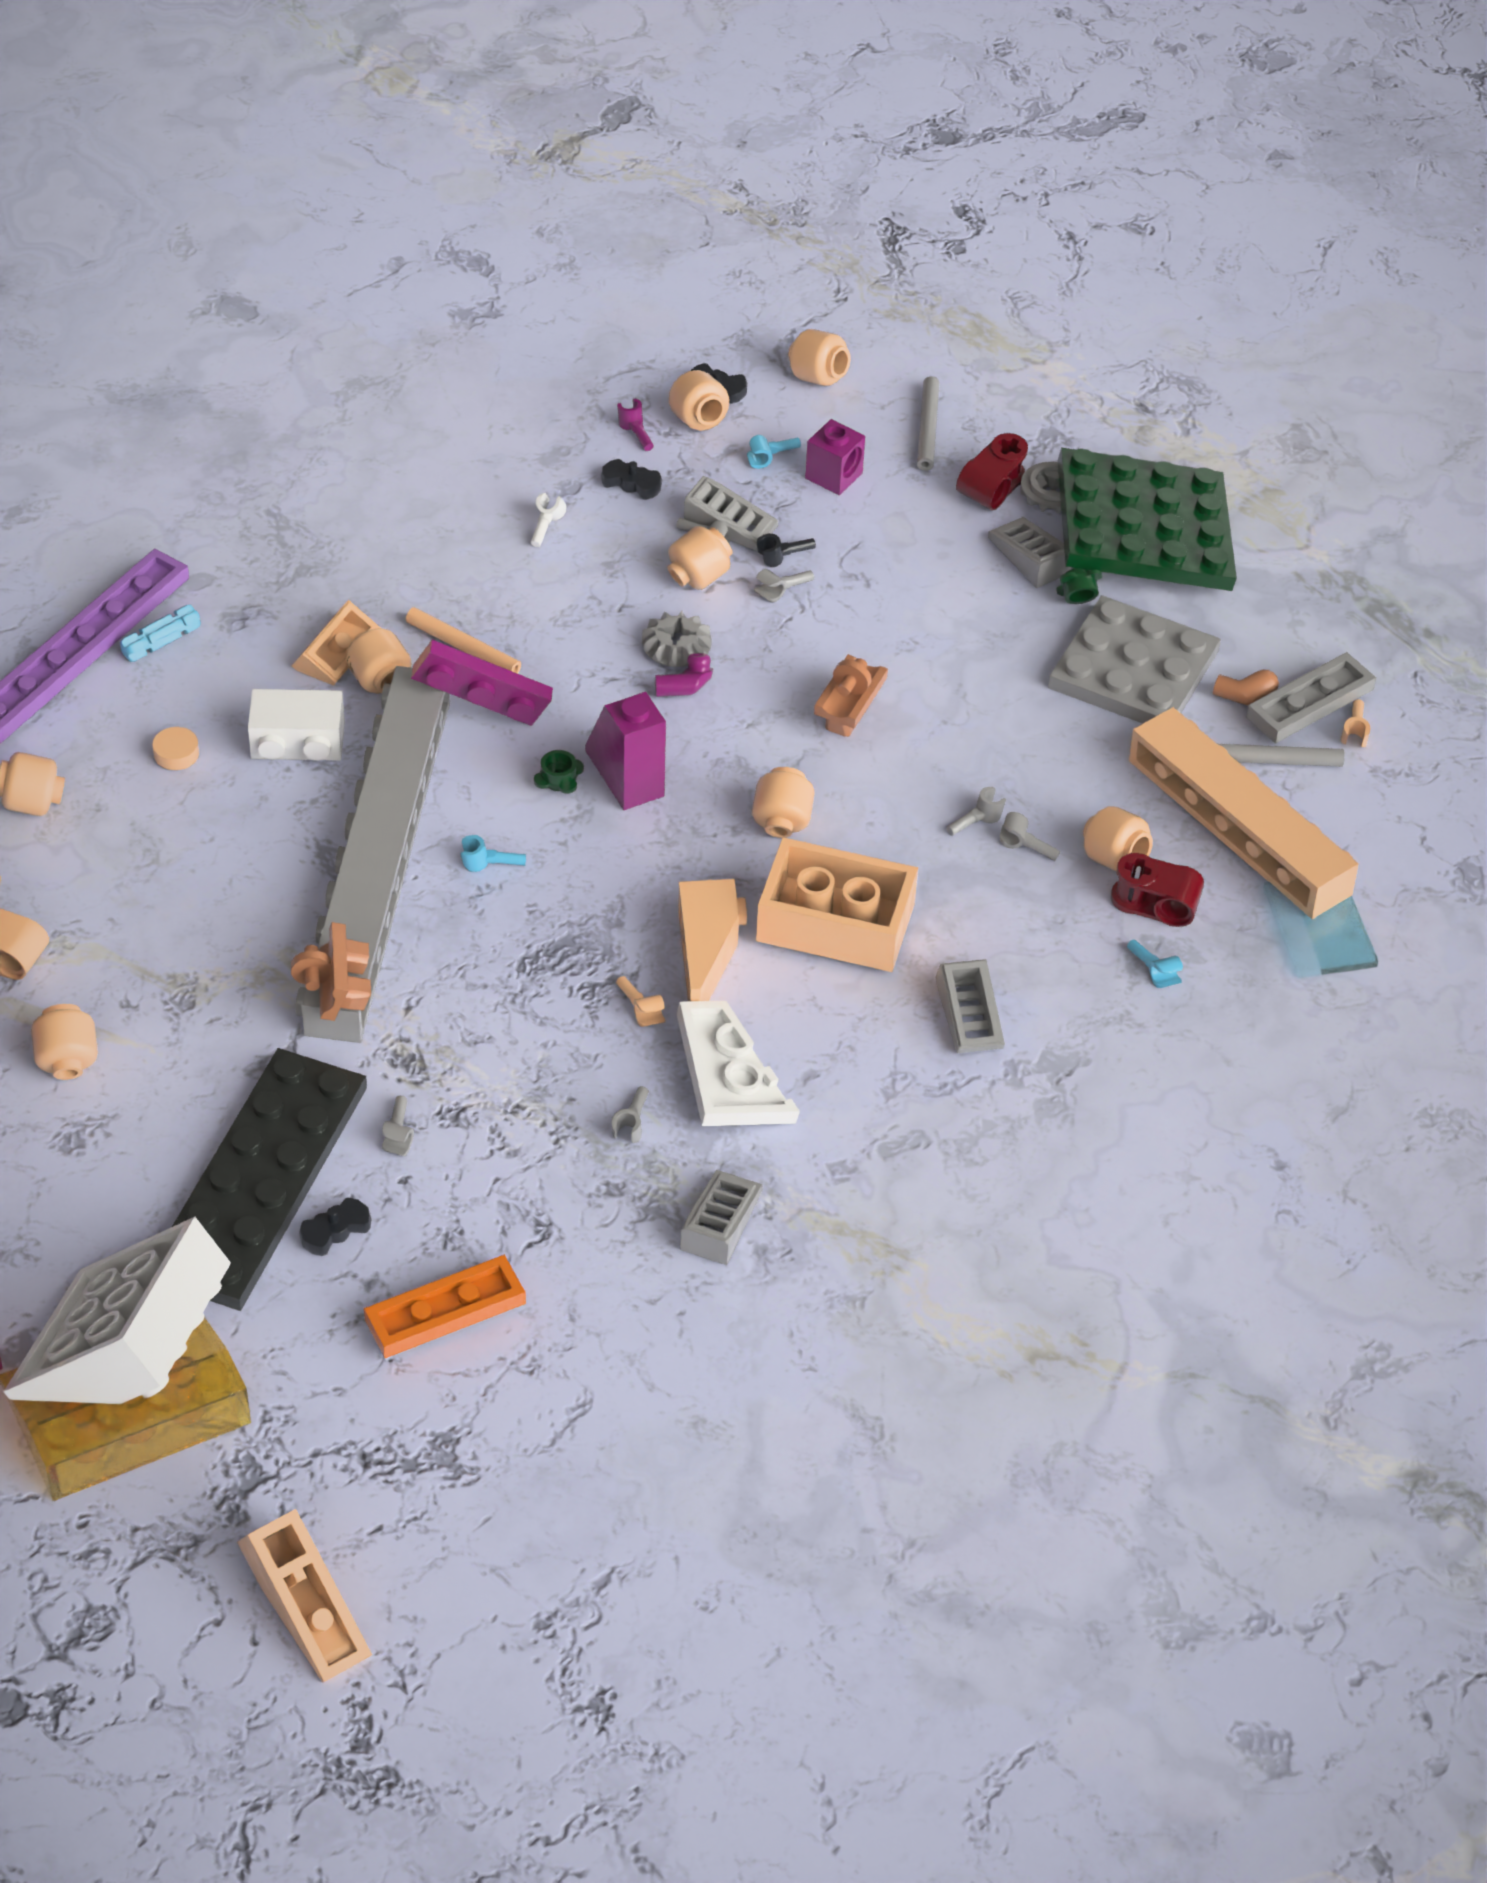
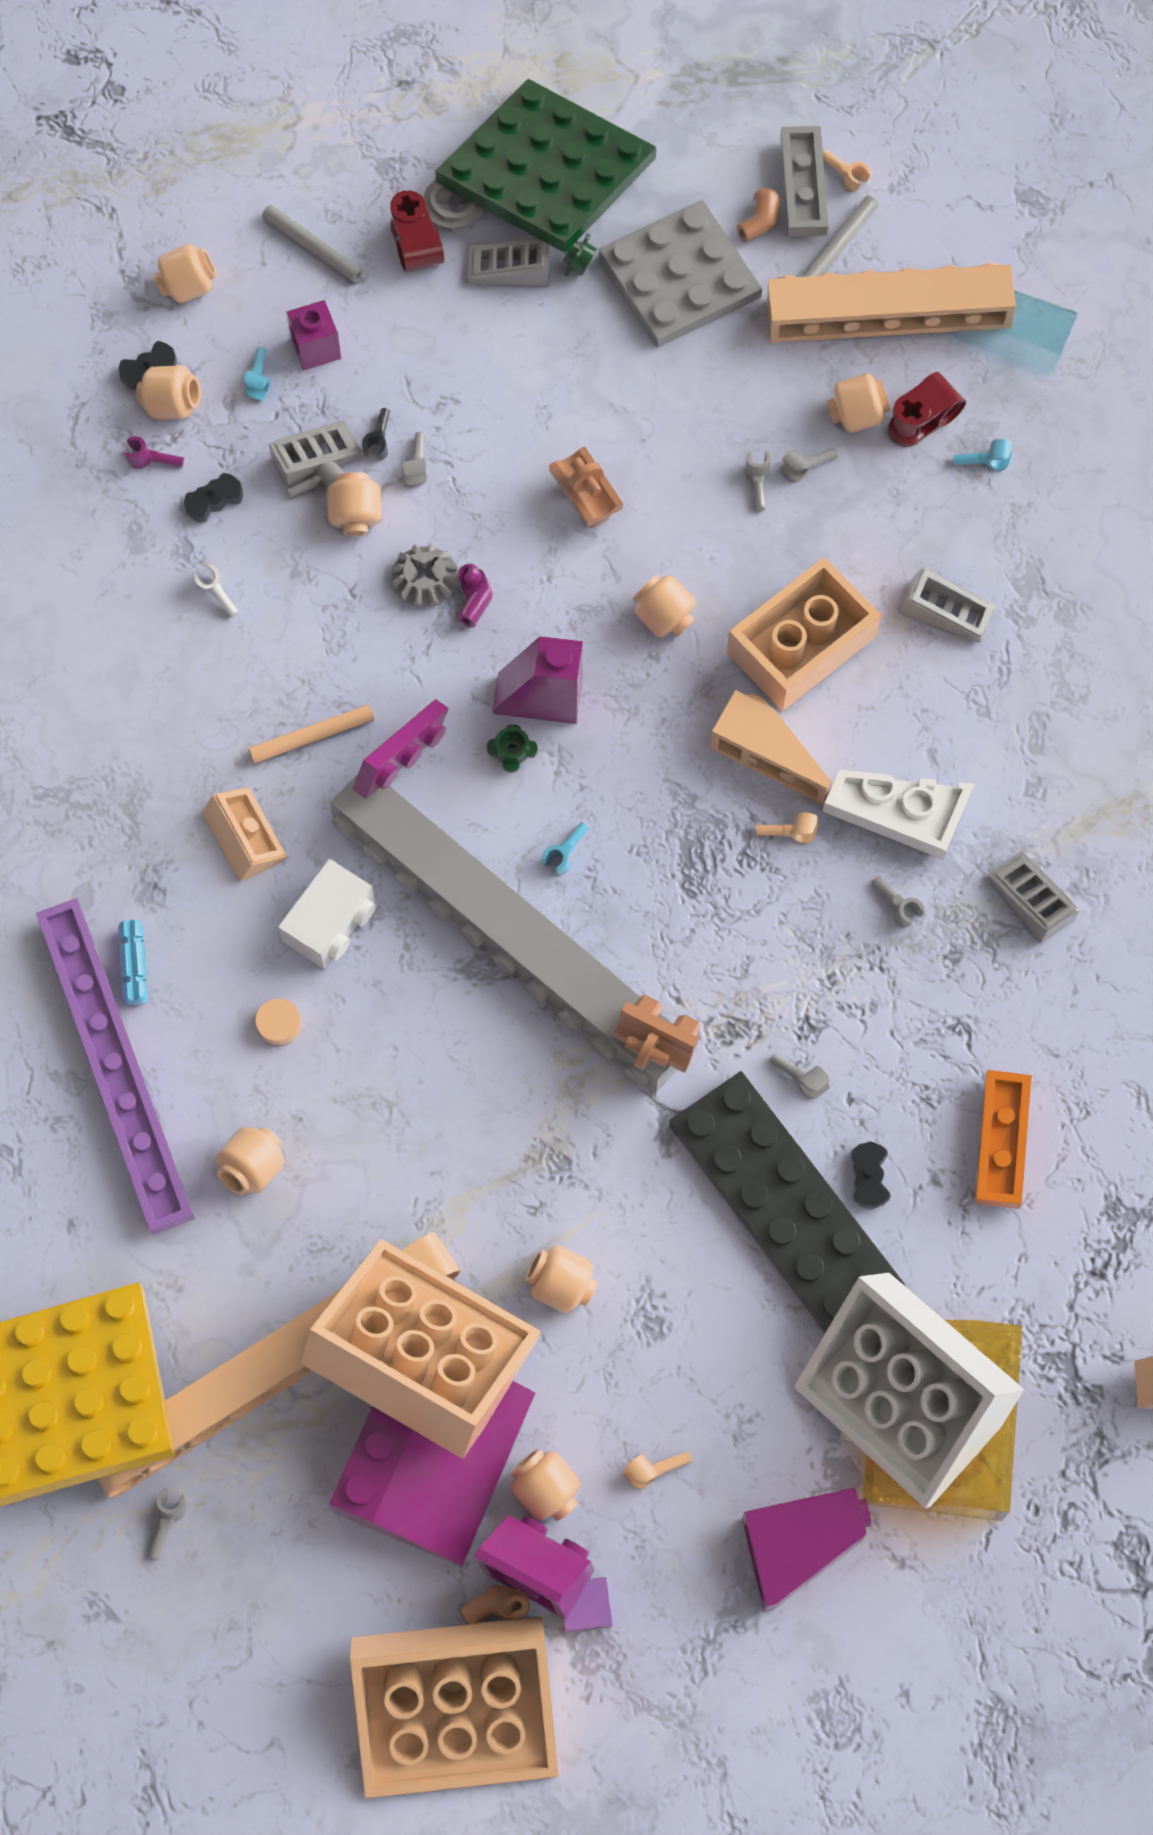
camera: 55 degrees left, 20 degrees up
(374, 658) = (300, 811): light nougat head -> none

